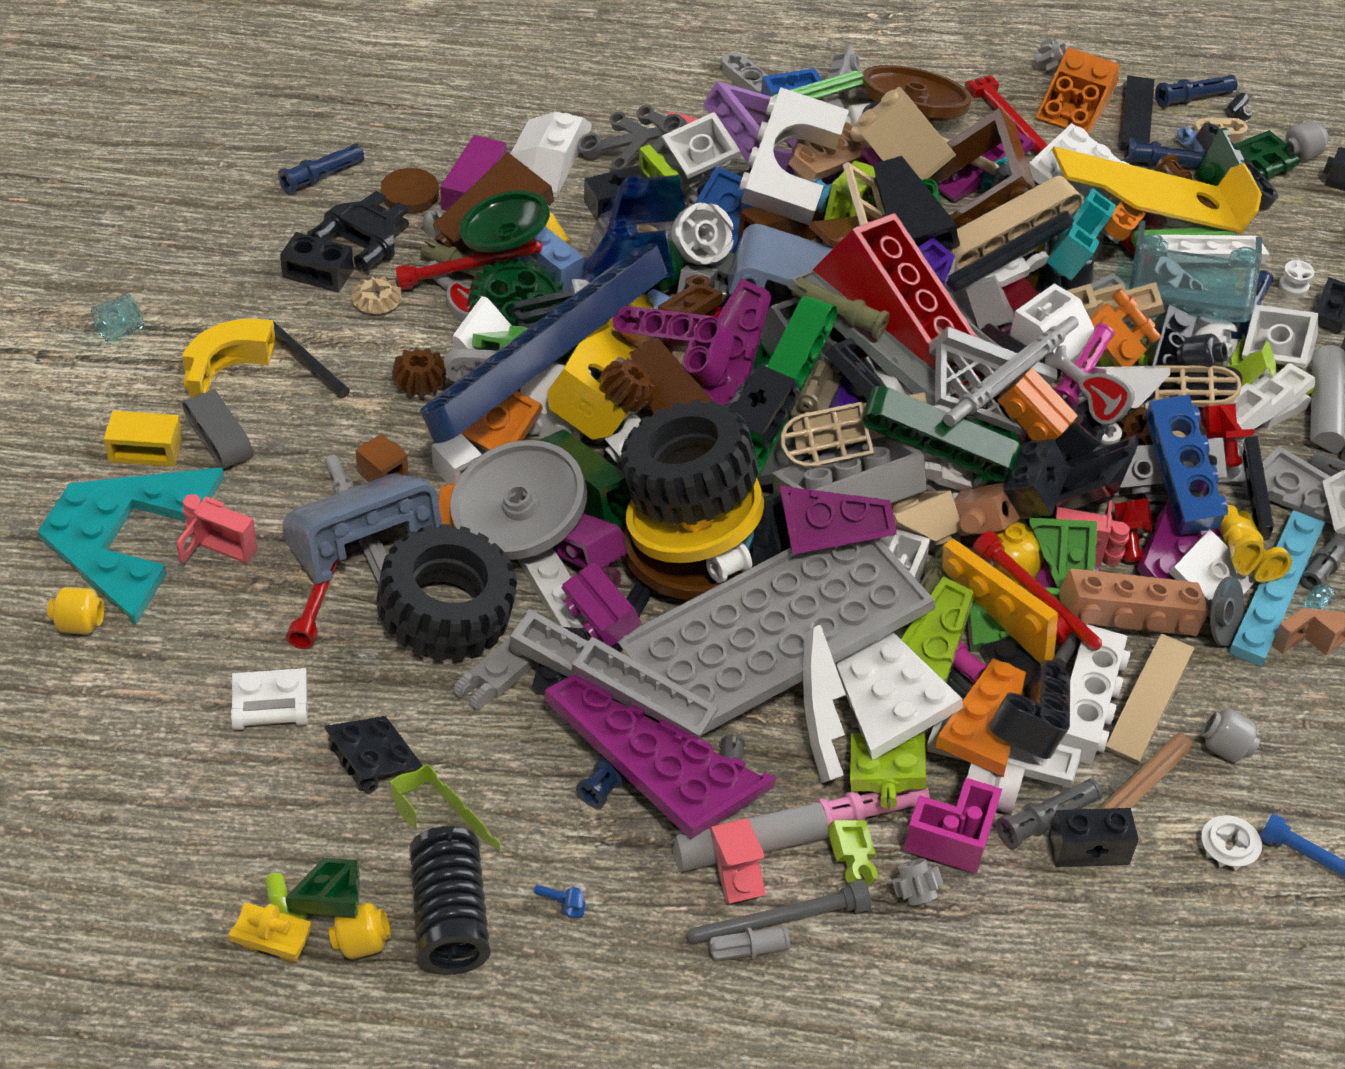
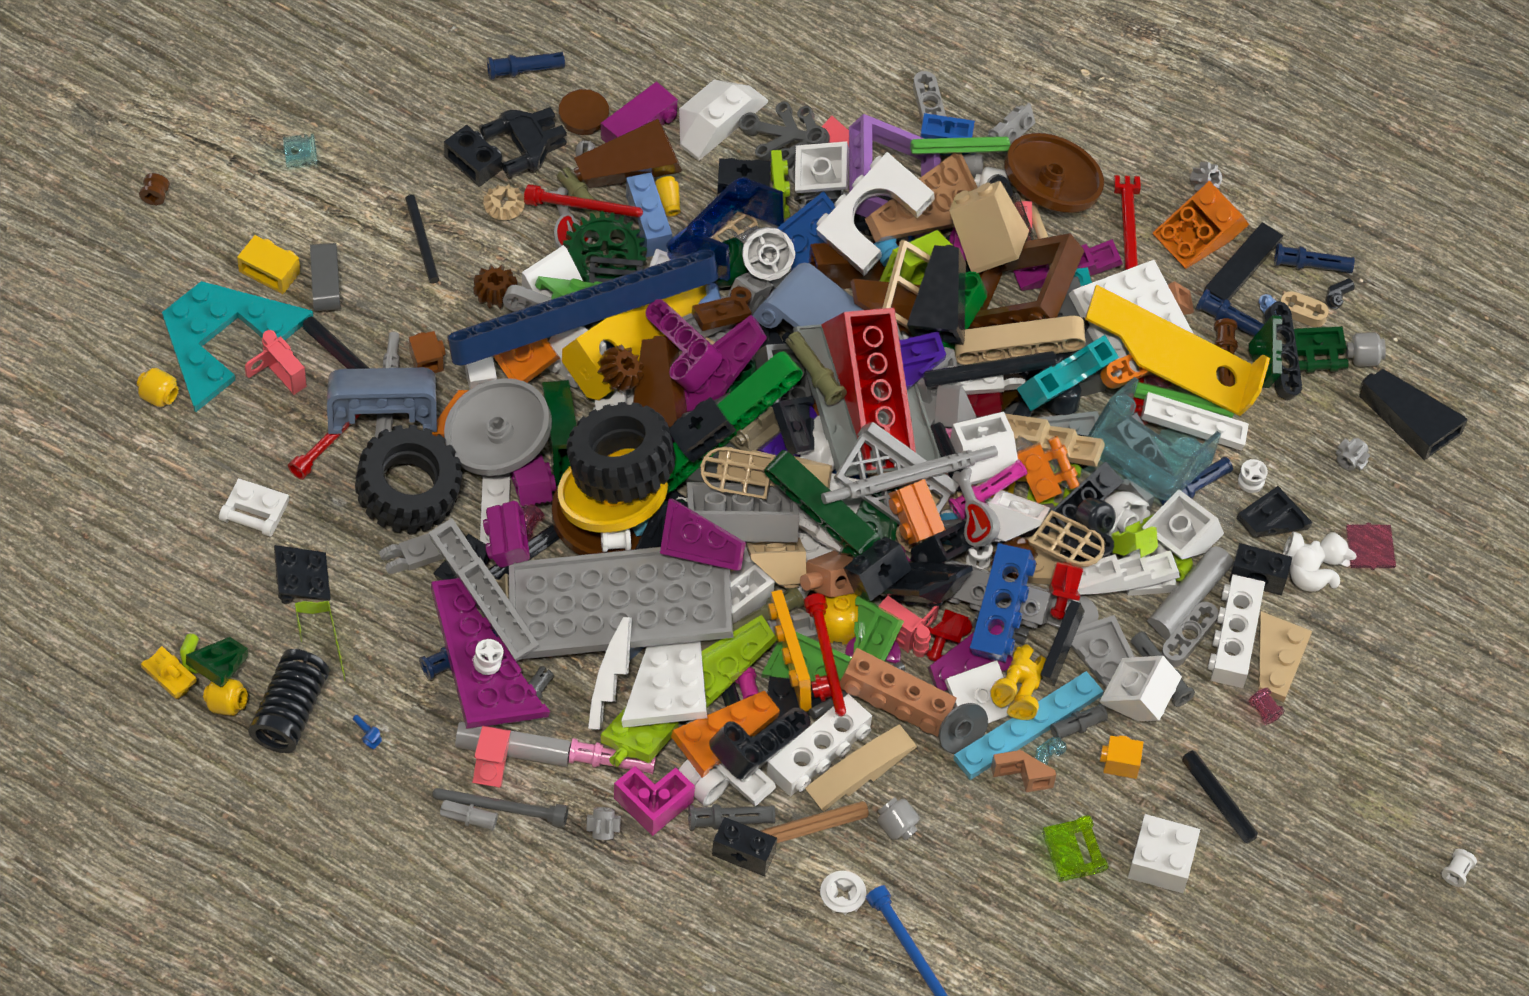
camera: 25 degrees right, 10 degrees up
(226, 345) = (360, 206): yellow arch -> none
(262, 493) = (332, 344): none -> black axle
(504, 221) = (620, 182): dark green dish -> none
(670, 743) = (493, 651): none -> white wheel
(855, 847) = (579, 780): lime plate -> none

